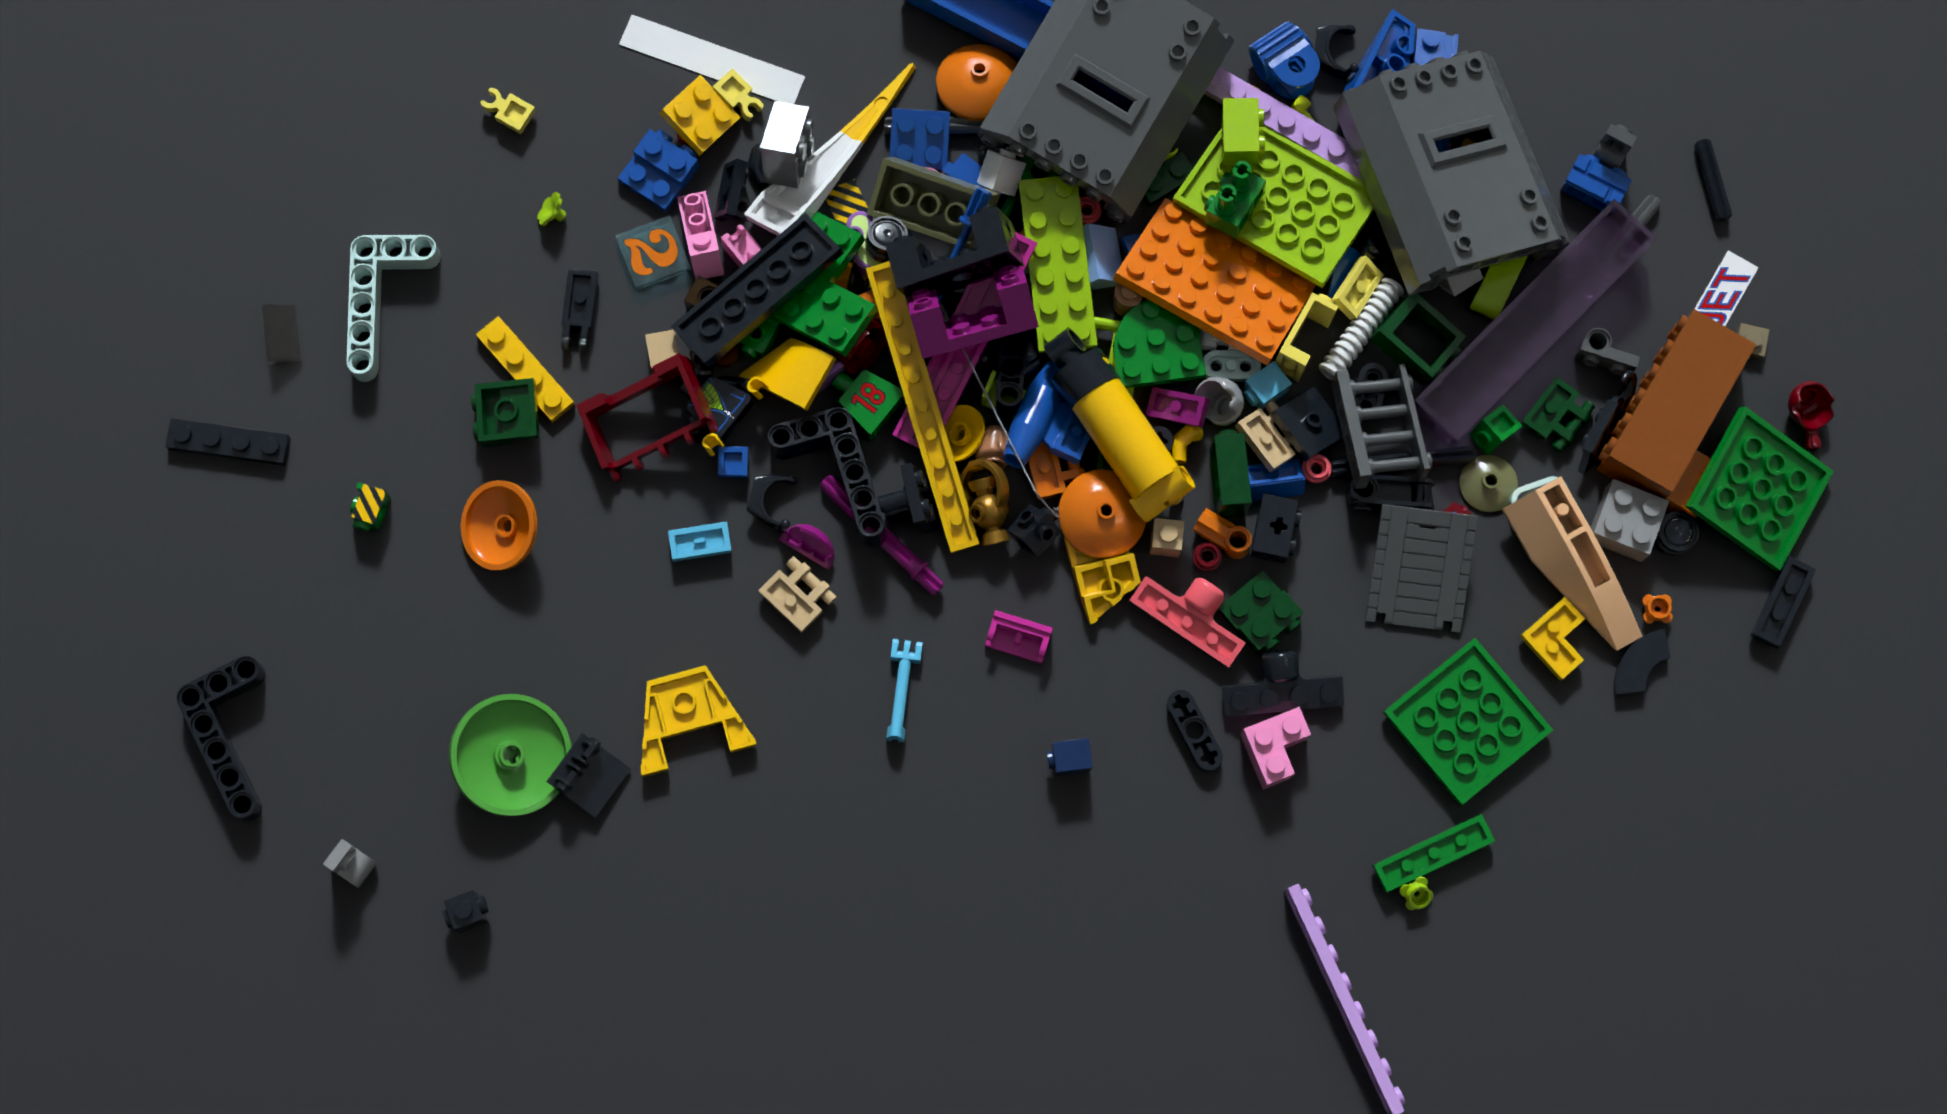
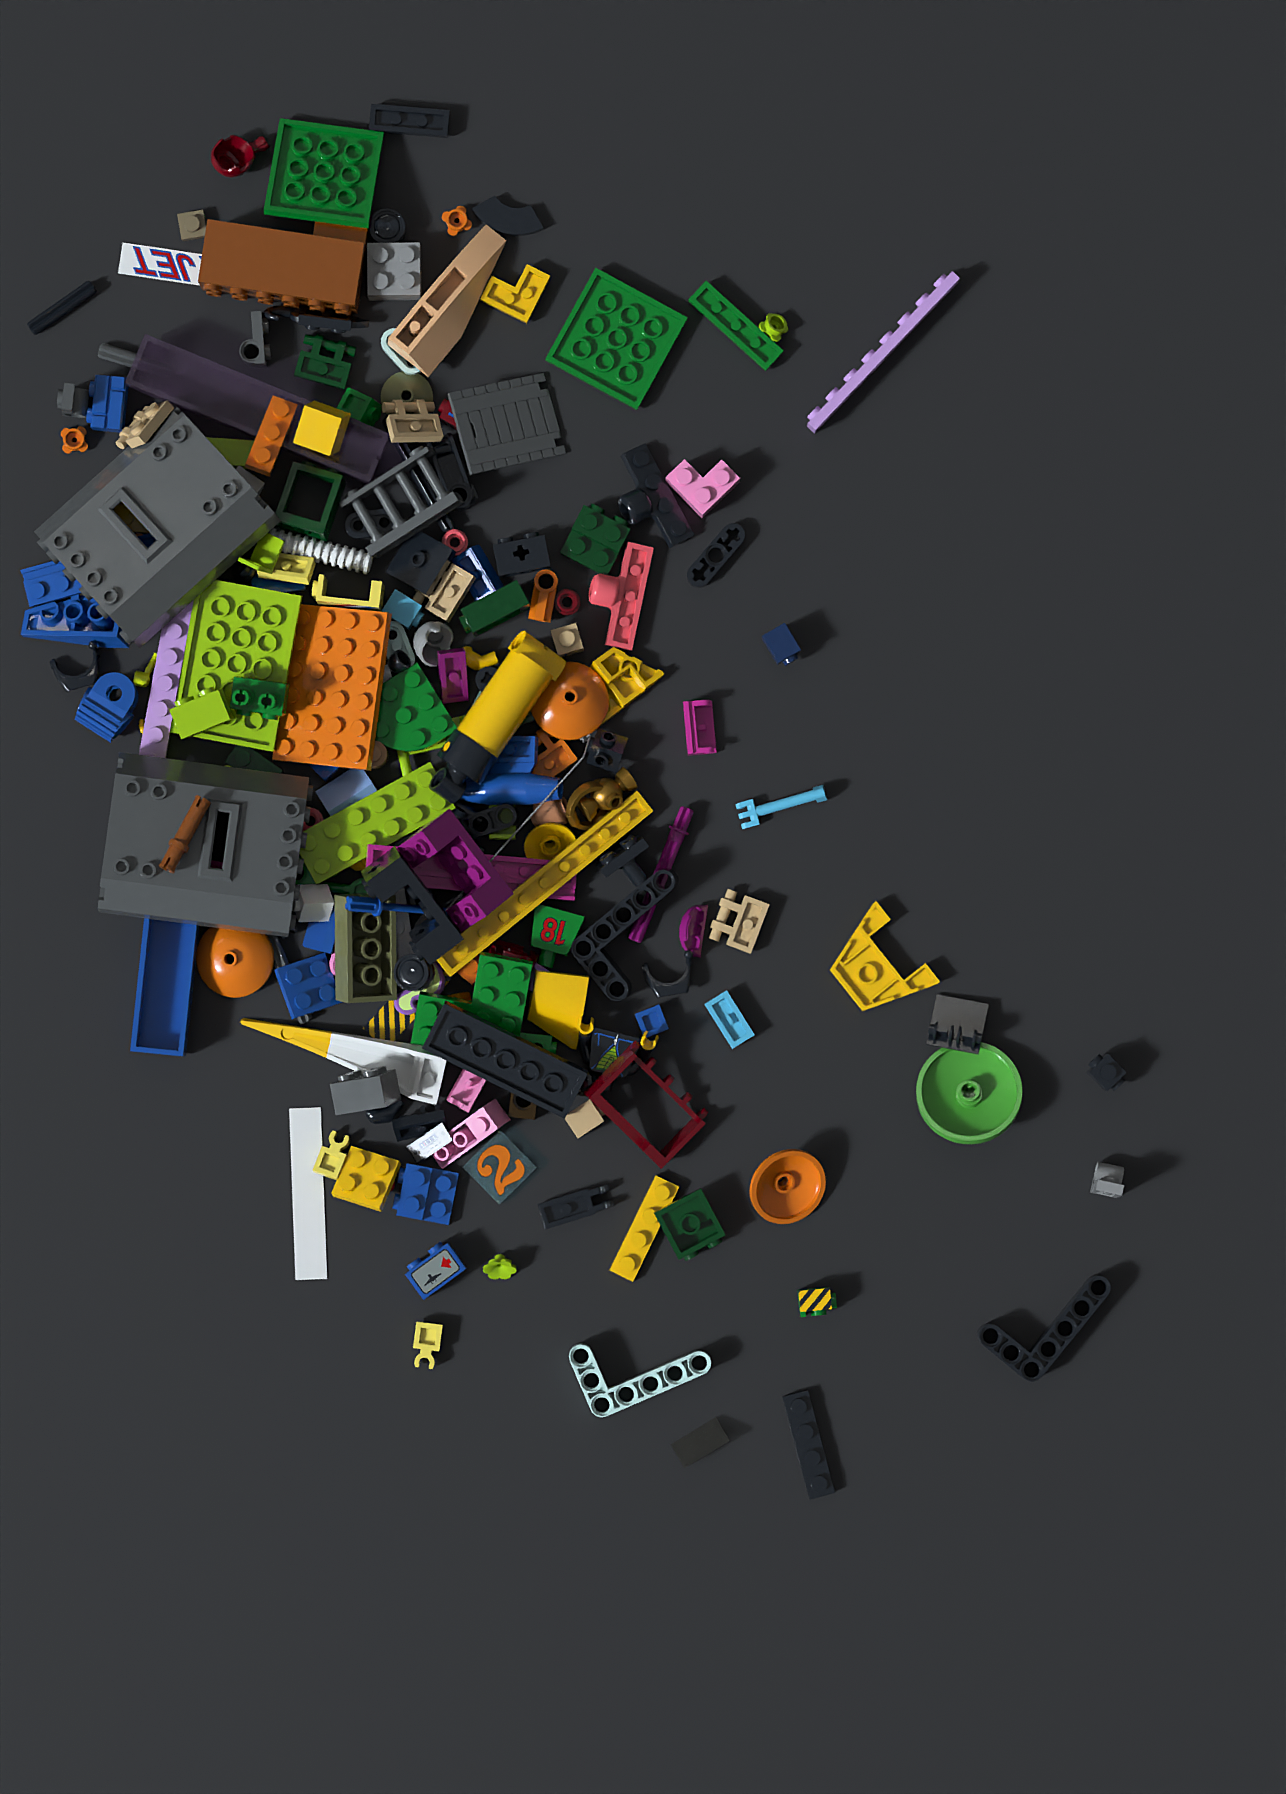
camera: 110 degrees left, 10 degrees up
(577, 146) = (435, 1270): none -> brick
(707, 192) = (429, 1143): none -> sticker
(1123, 55) = (180, 843): none -> dark orange pin
(1214, 357) = (399, 661): none -> black hinge
(1378, 267) = (265, 554): none -> lime bracket
(1455, 468) = (412, 427): none -> tan plate
(1491, 369) = (322, 428): none -> yellow head
(1502, 319) = (271, 435): none -> orange plate
(1563, 207) = (144, 424): none -> tan plate
(1577, 132) = (69, 434): none -> orange plate

